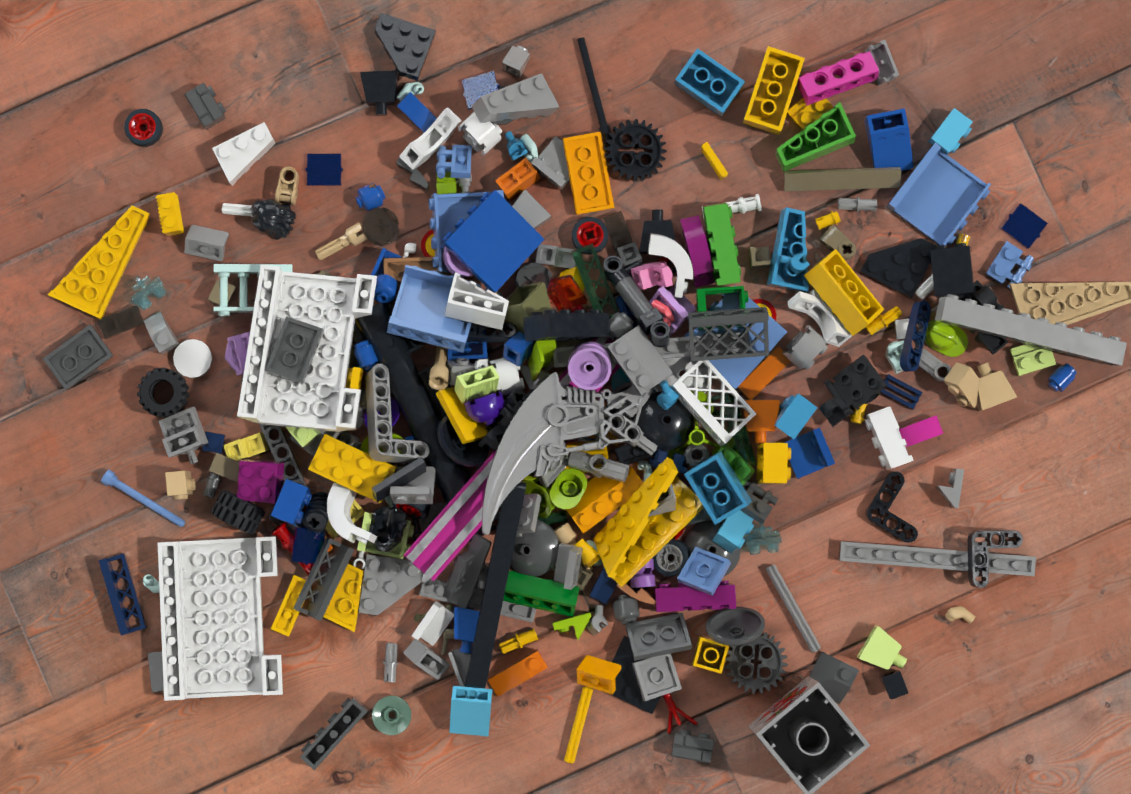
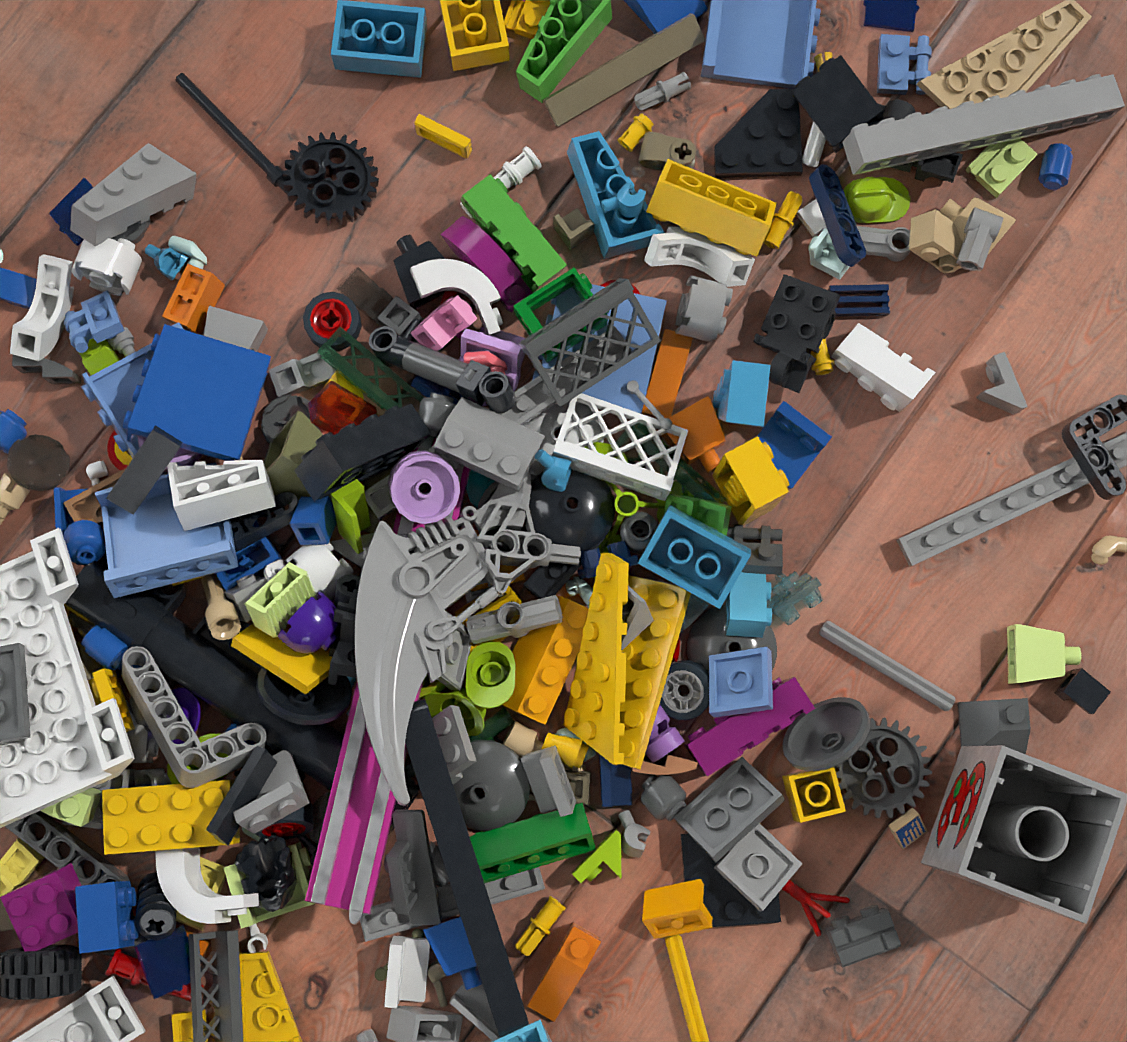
camera: 30 degrees left, 5 degrees down
(386, 582) = (308, 951): light grey plate -> none
(440, 269) = (144, 470): none -> black tile
(516, 60) = (105, 147): light grey slope -> none
(553, 163) = (236, 250): light grey bracket -> none
(588, 173) = (284, 241): light orange tile -> none
(739, 371) = (633, 388): none -> light grey hinge
(751, 703) = (907, 828): none -> tan tile
(883, 508) = (927, 463): black beam -> none
(921, 431) = (918, 333): dark pink slope -> none
(990, 393) = (980, 233): none -> light grey piece

